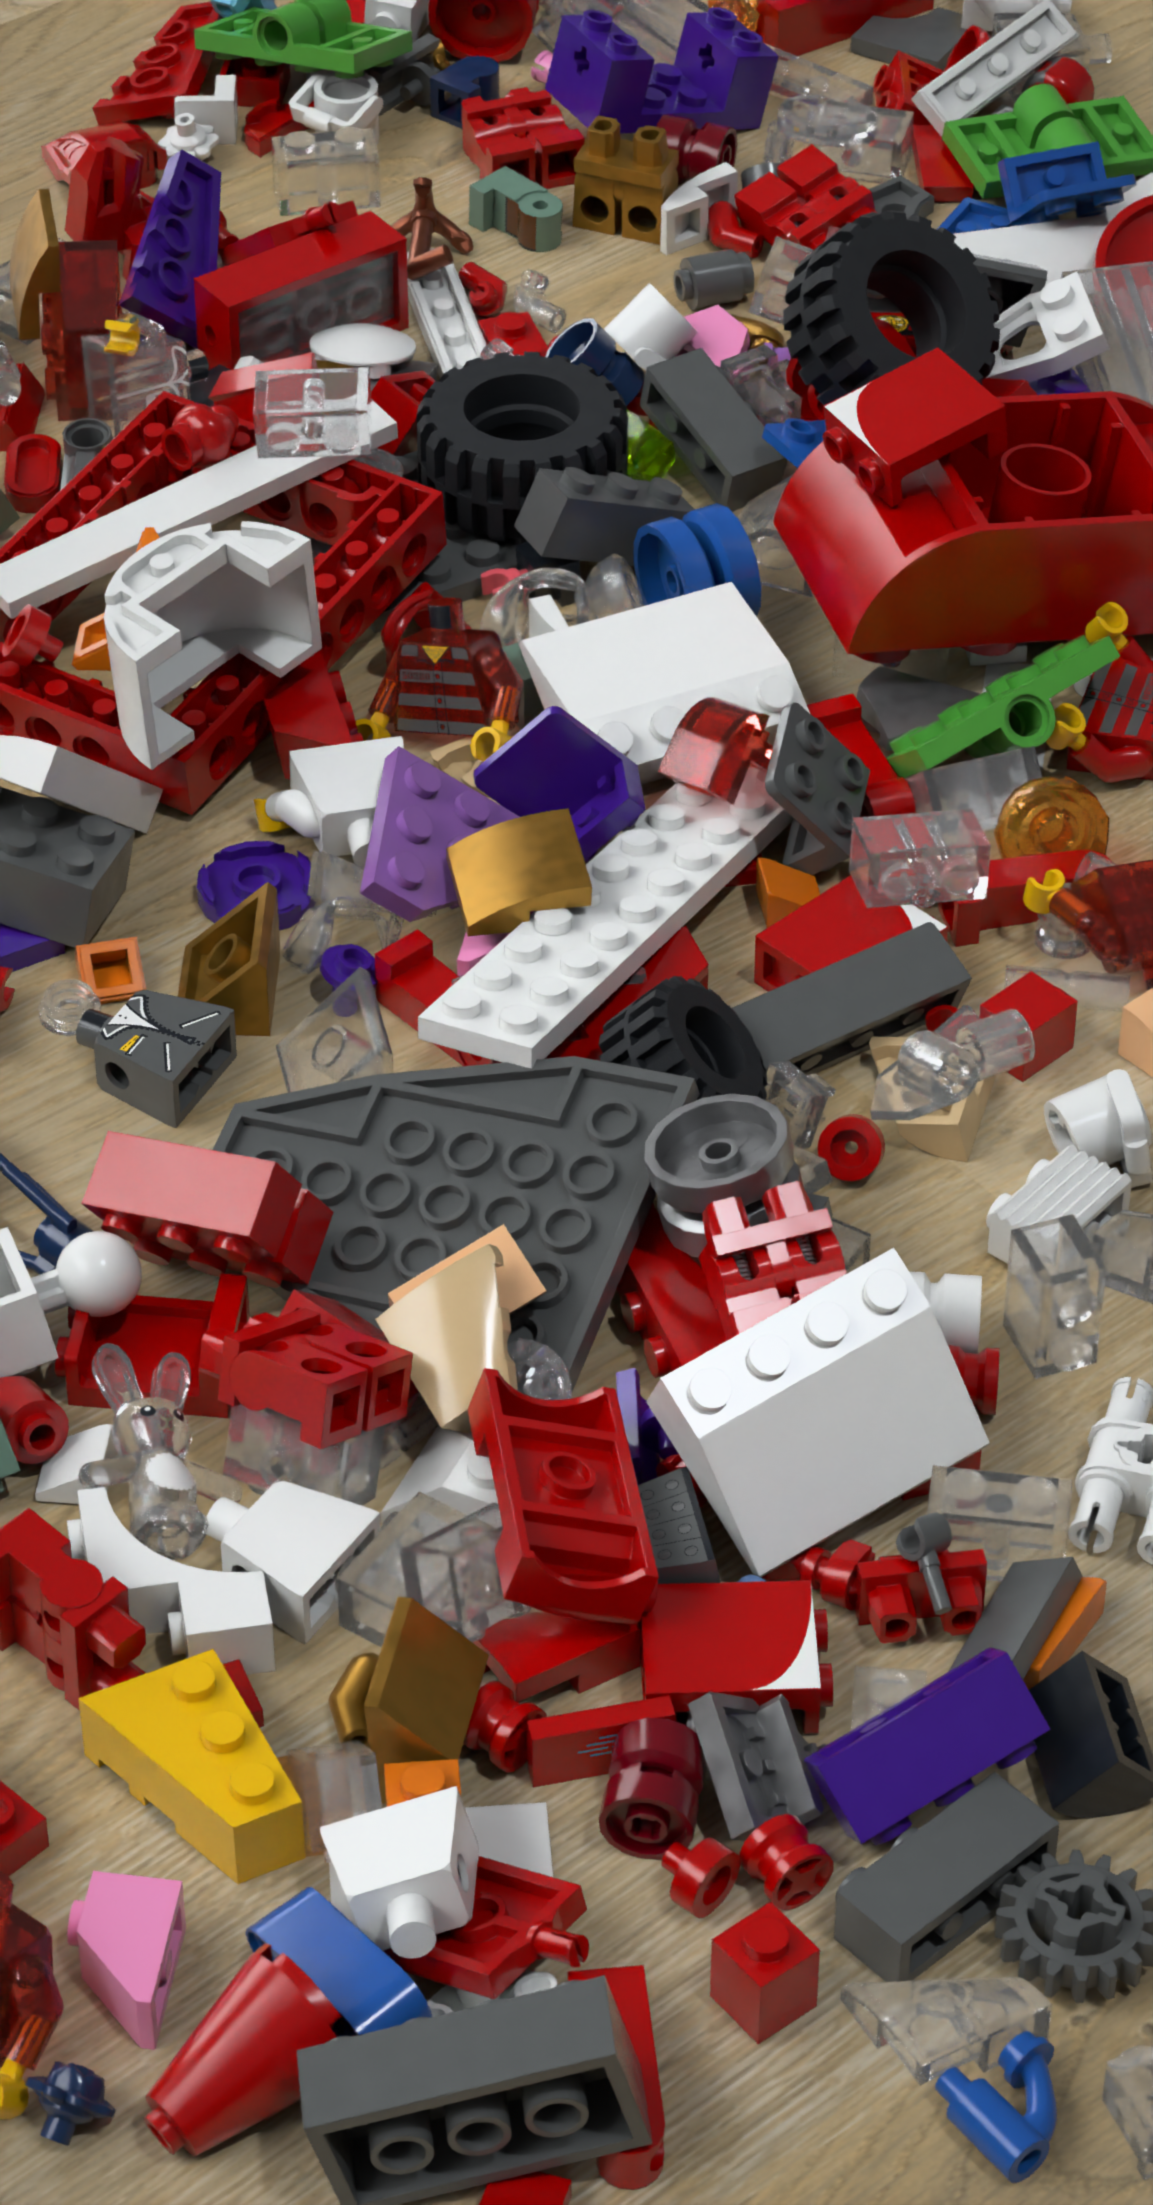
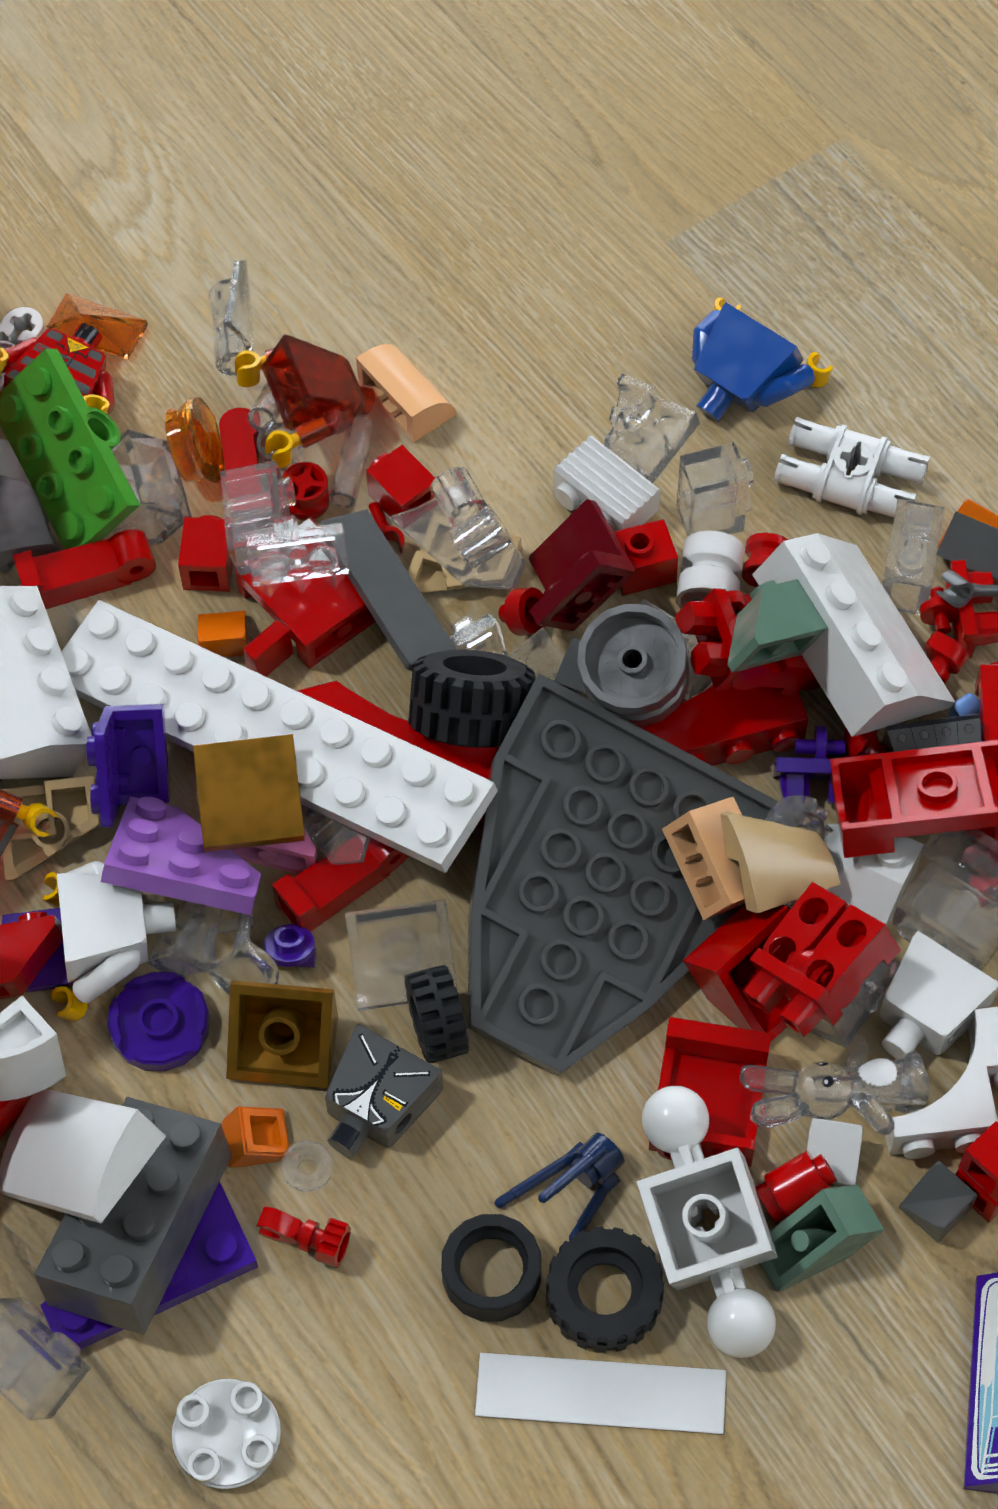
camera: 85 degrees left, 20 degrees up
(207, 1209) = (619, 1035): piece -> none
(243, 1054) = (436, 1014): none -> black tyre
(716, 748) = (108, 641): clear red brick -> none
(751, 914) = (269, 649): none -> red tile
(765, 1253) = (774, 626): none -> sand green slope
(818, 787) = (152, 590): dark grey bracket -> none
(852, 881) = (297, 557): none -> clear plate
(875, 1173) = (578, 568): none -> dark red bracket
(956, 1242) = (651, 555): none -> red brick
(1007, 938) = (308, 477): none -> red wheel
(1106, 1123) = (526, 448): white piece -> none

